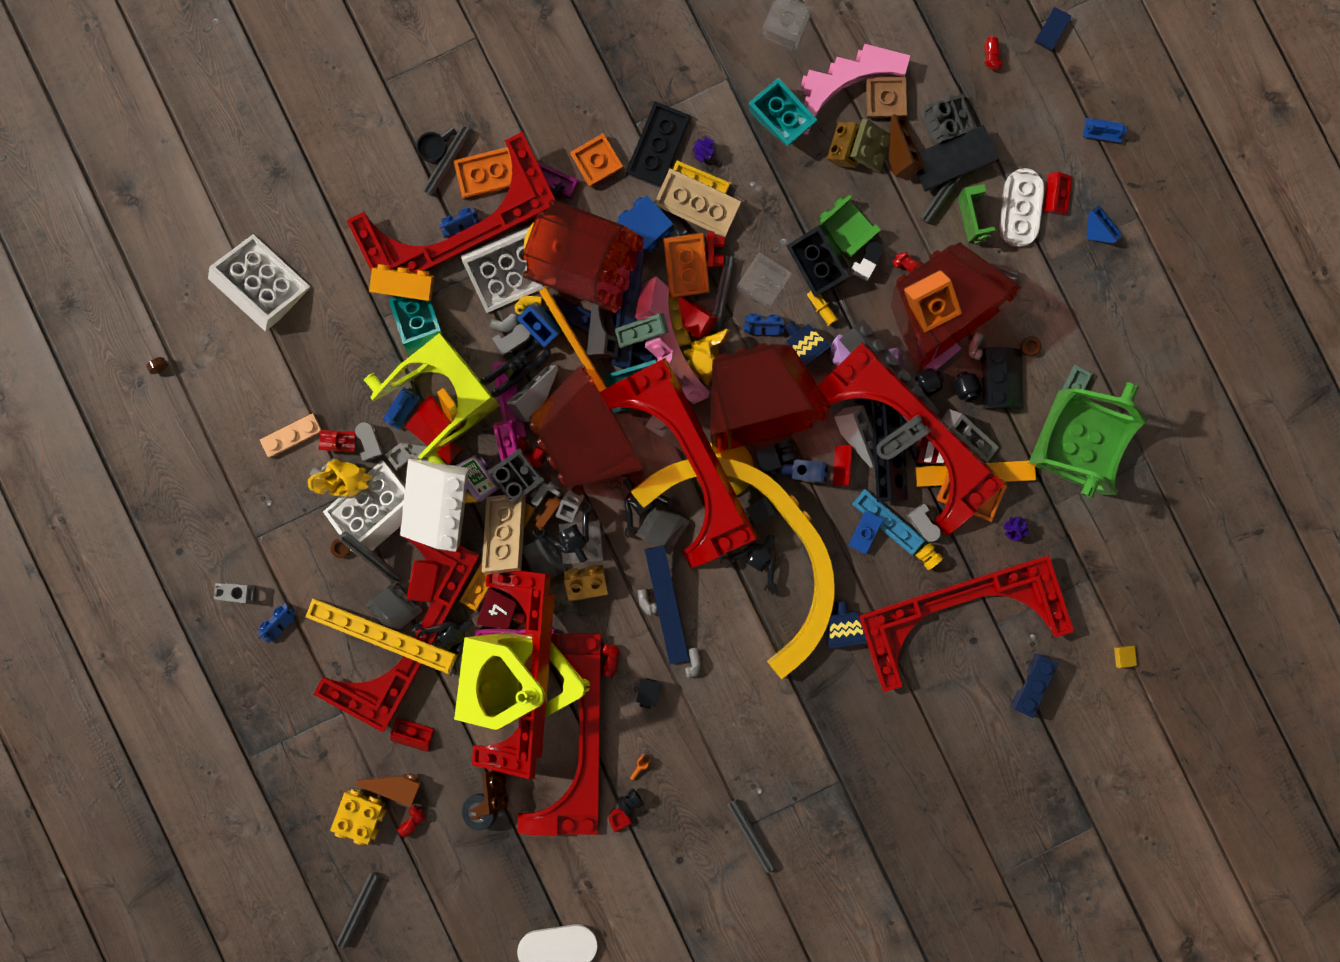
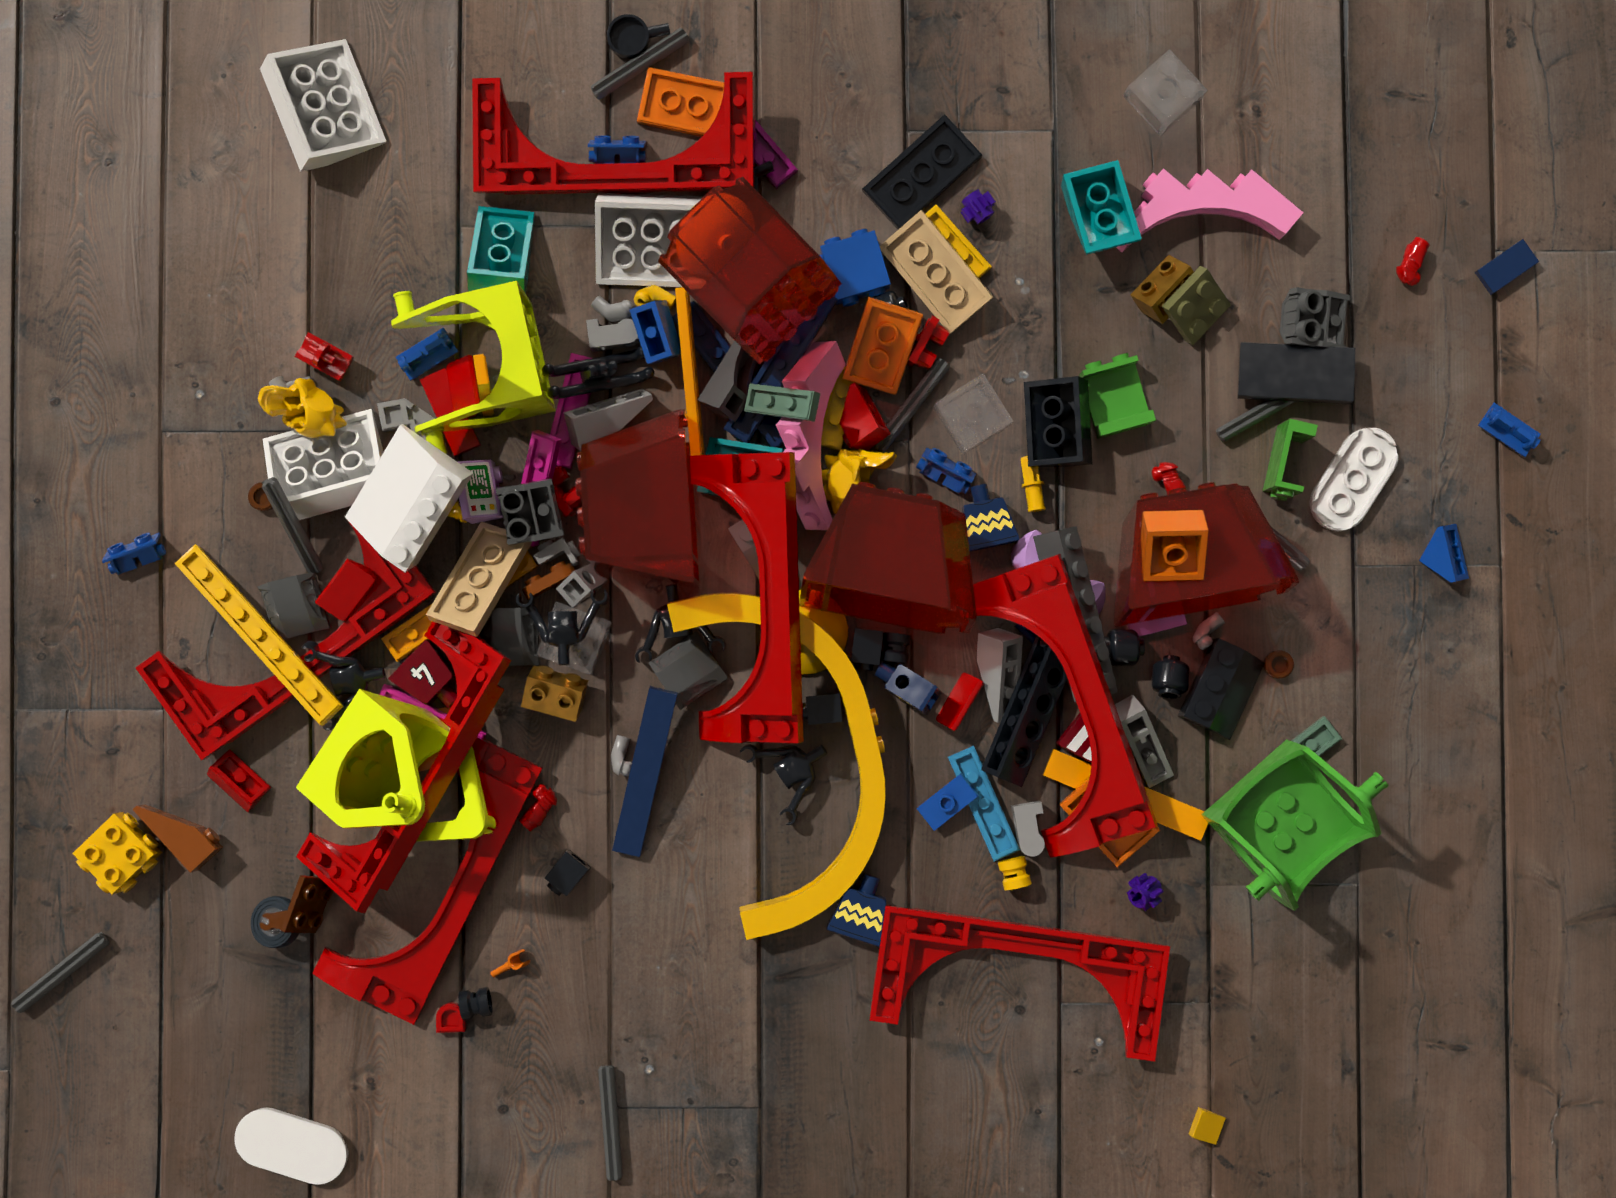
camera: 20 degrees right, 0 degrees up
(157, 365) = (141, 149): reddish brown tile -> none
(234, 592) = (99, 488): light grey leg -> none
(291, 435) = (269, 321): light nougat plate -> none
(370, 441) = (366, 377): light grey leg -> none
(401, 282) = (504, 192): light orange brick -> none
(410, 825) = (181, 895): red arm -> none
(596, 160) = (832, 154): orange plate -> none
(695, 663) = (646, 864): light grey arm -> none
(871, 257) = (1130, 447): leg -> none
(886, 97) = (1247, 252): medium nougat plate -> none
(902, 438) = (1050, 703): dark grey plate -> none
(903, 152) = (1234, 333): reddish brown slope -> none
(1039, 676) = (1060, 1115): dark blue arch -> none
(1057, 193) = (1410, 483): red slope -> none

